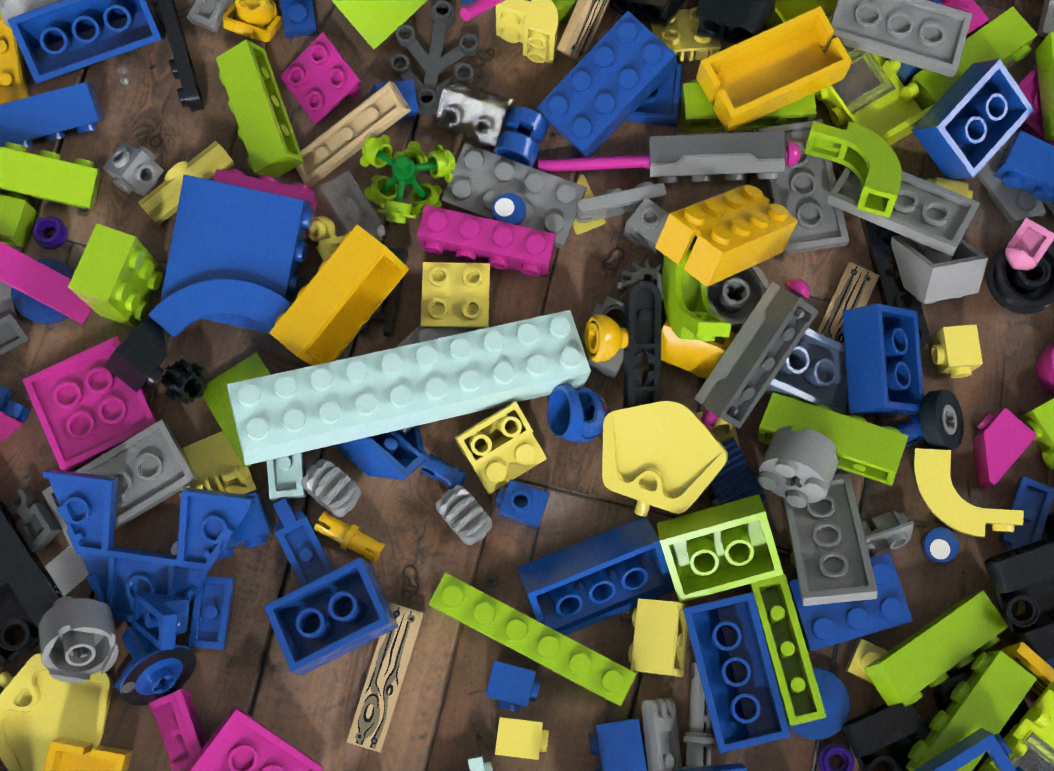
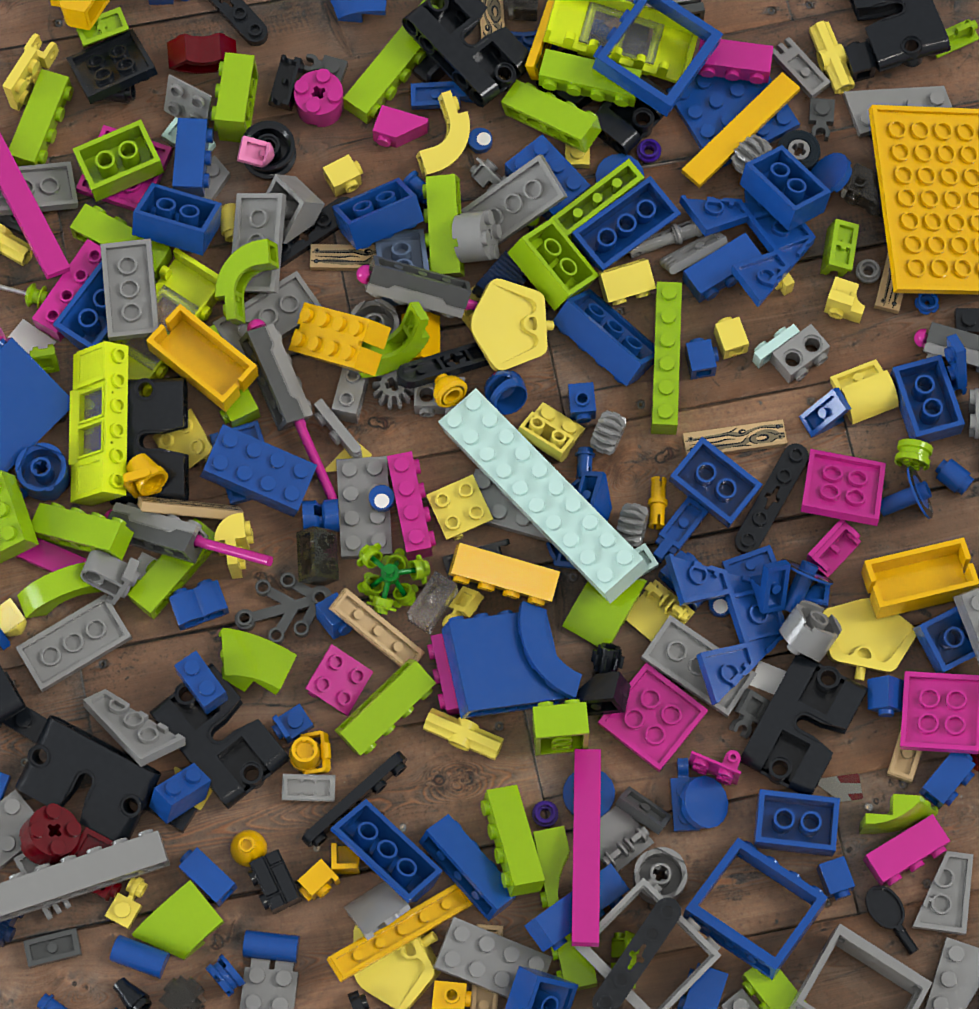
camera: 110 degrees left, 5 degrees down
(133, 169) = (472, 771): light grey brick -> none
(307, 714) = (783, 478): none -> black piece
(941, 420) = (398, 166): black bush -> none

